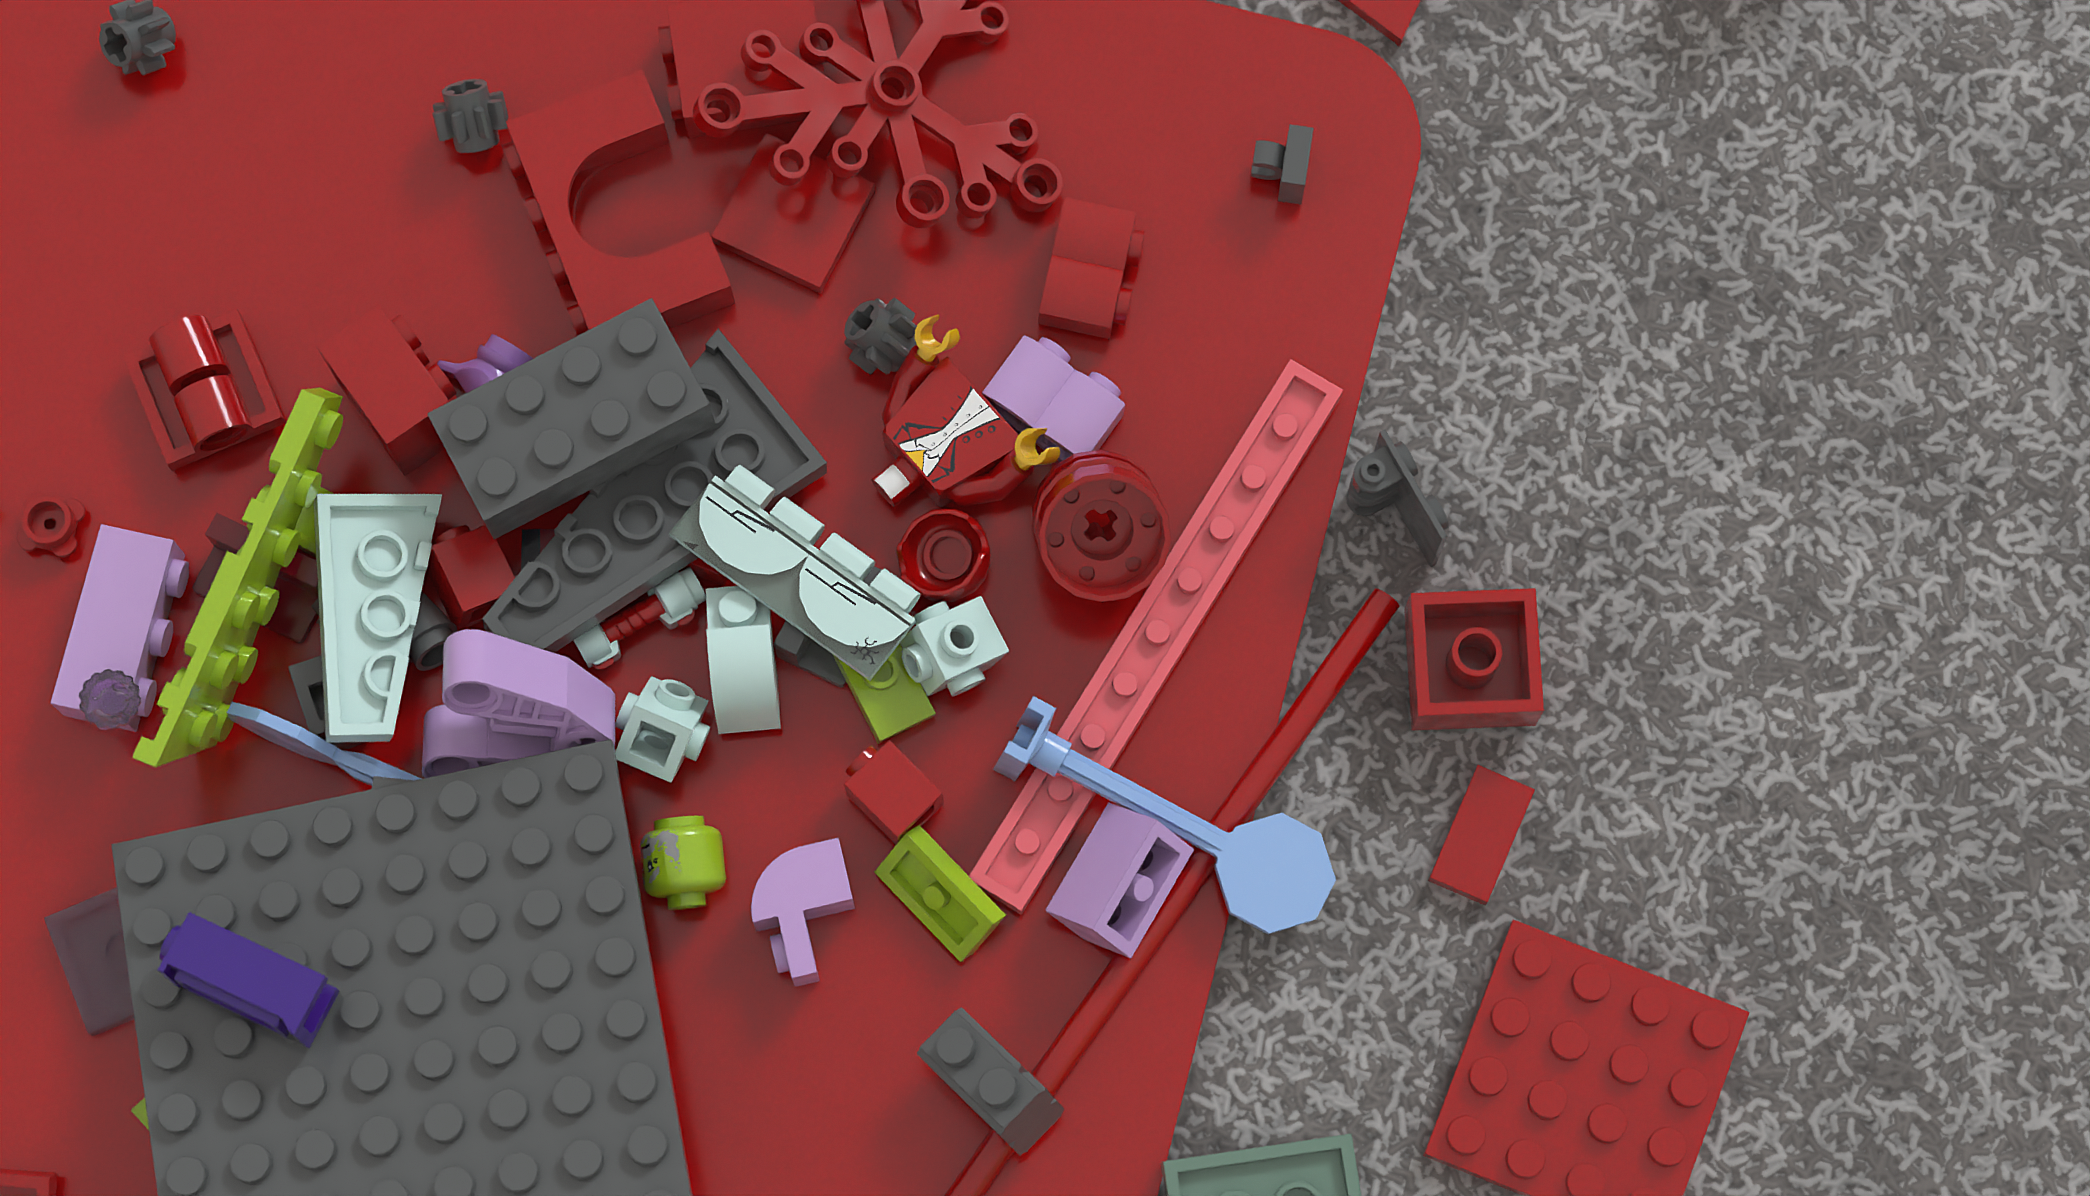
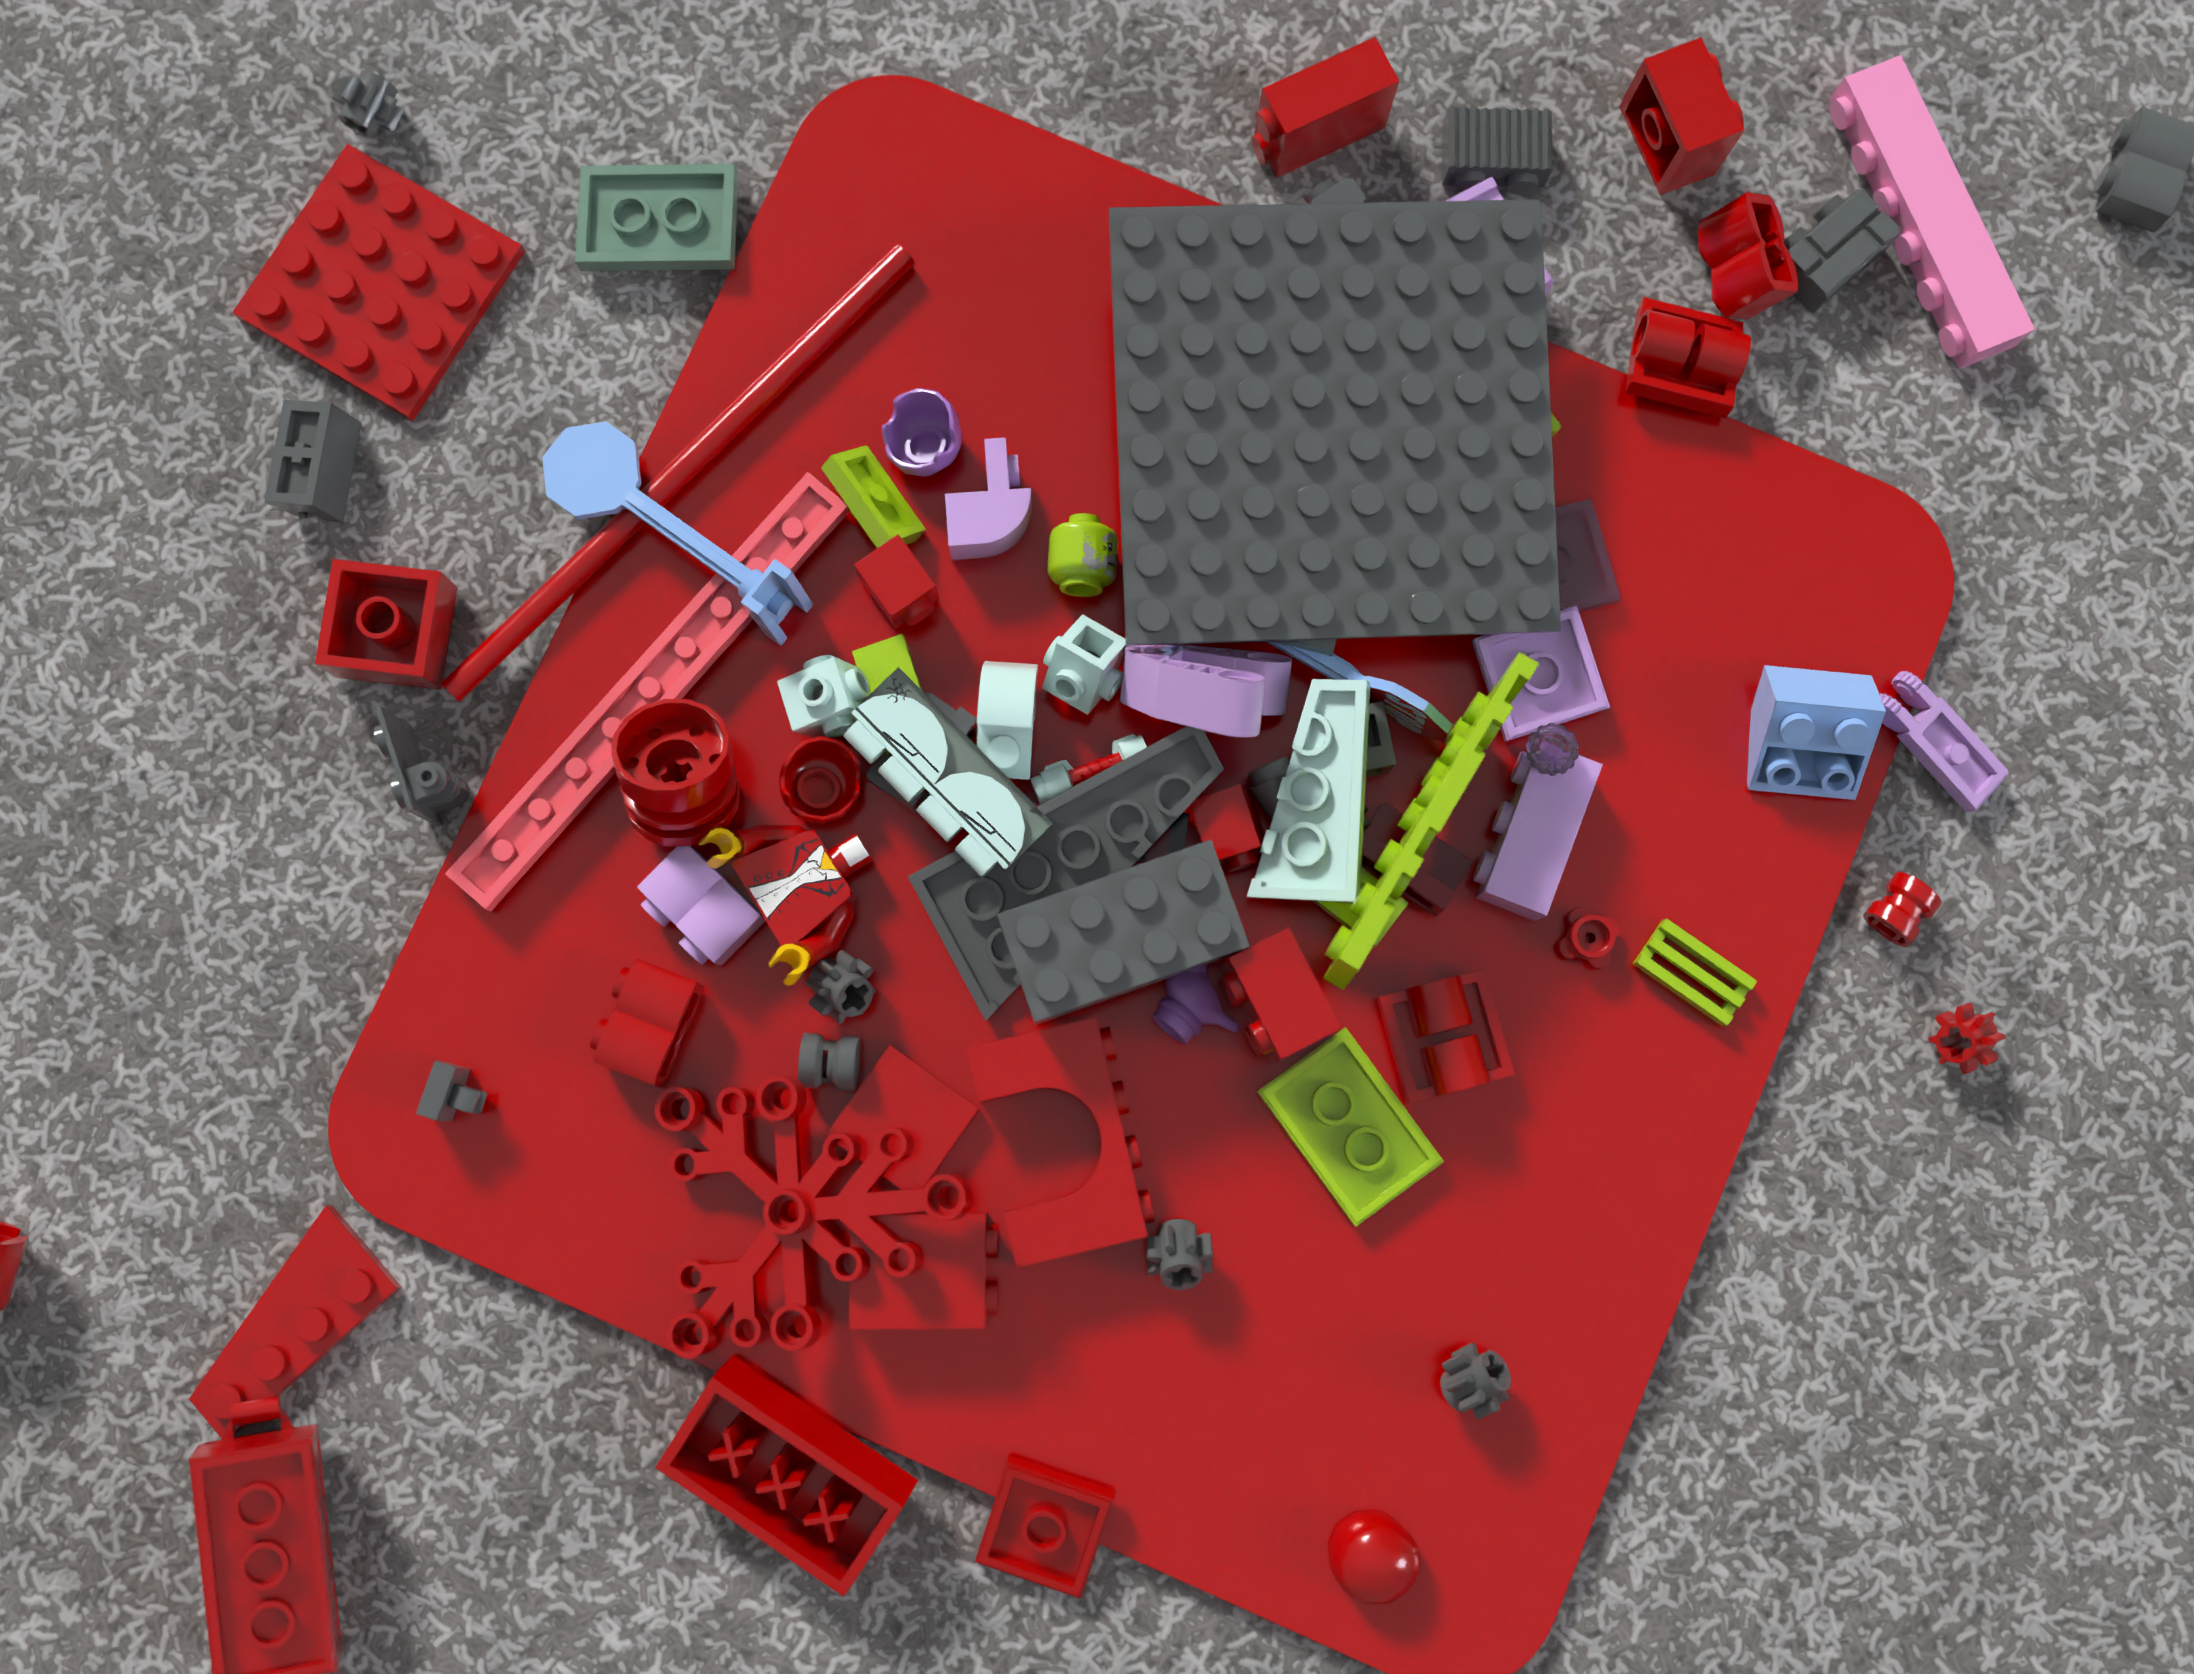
camera: 175 degrees left, 5 degrees up
(121, 802) = (1562, 685): none -> lavender plate
(247, 978) = (1457, 474): dark purple window -> none
(295, 276) = (1350, 1127): none -> lime tile
(867, 262) = (842, 1061): none -> dark grey wheel
(894, 976) = (922, 433): none -> medium lavender hair
(990, 1081) = (856, 330): dark grey brick -> none
(1119, 879) = (721, 479): lavender brick -> none
(1481, 835) = (418, 491): red tile -> none
(1608, 843) = (313, 460): none -> dark grey hinge

